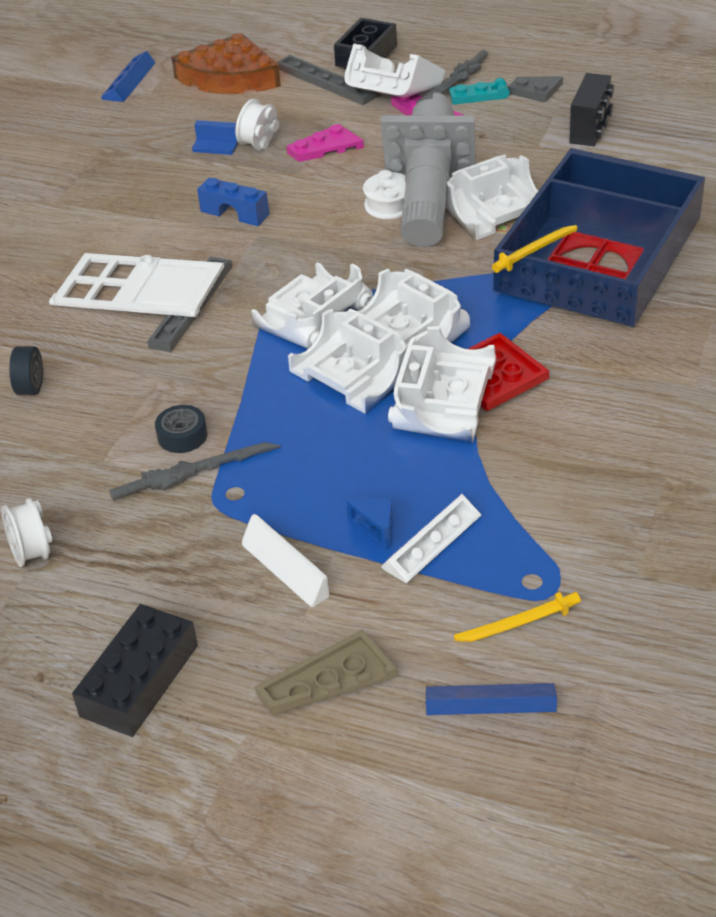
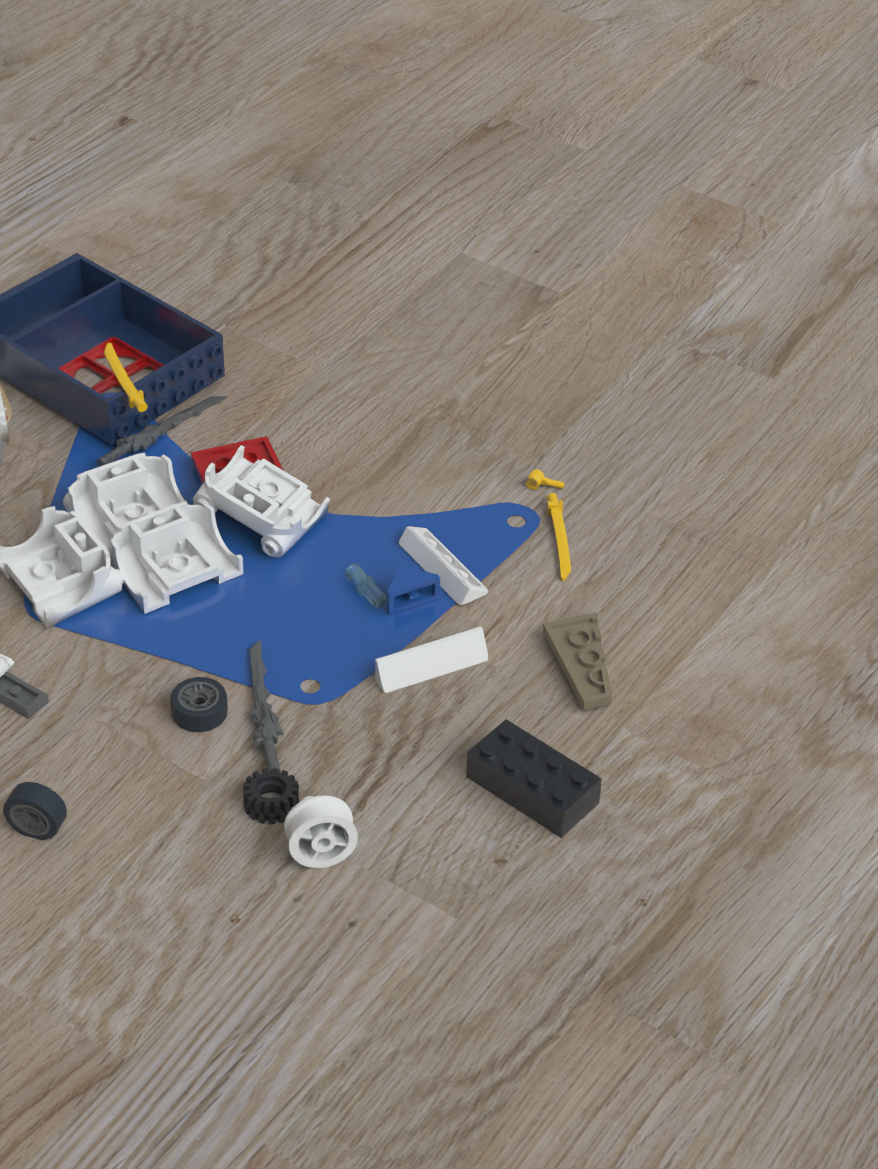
camera: 80 degrees left, 0 degrees up
(79, 489) = (265, 807): none -> black tyre
(378, 486) = (365, 585): none -> clear light blue axle
(491, 699) = (639, 571): blue slope -> none
(520, 307) = (151, 432): none -> dark grey sword
(600, 578) = (537, 477): none -> yellow hand

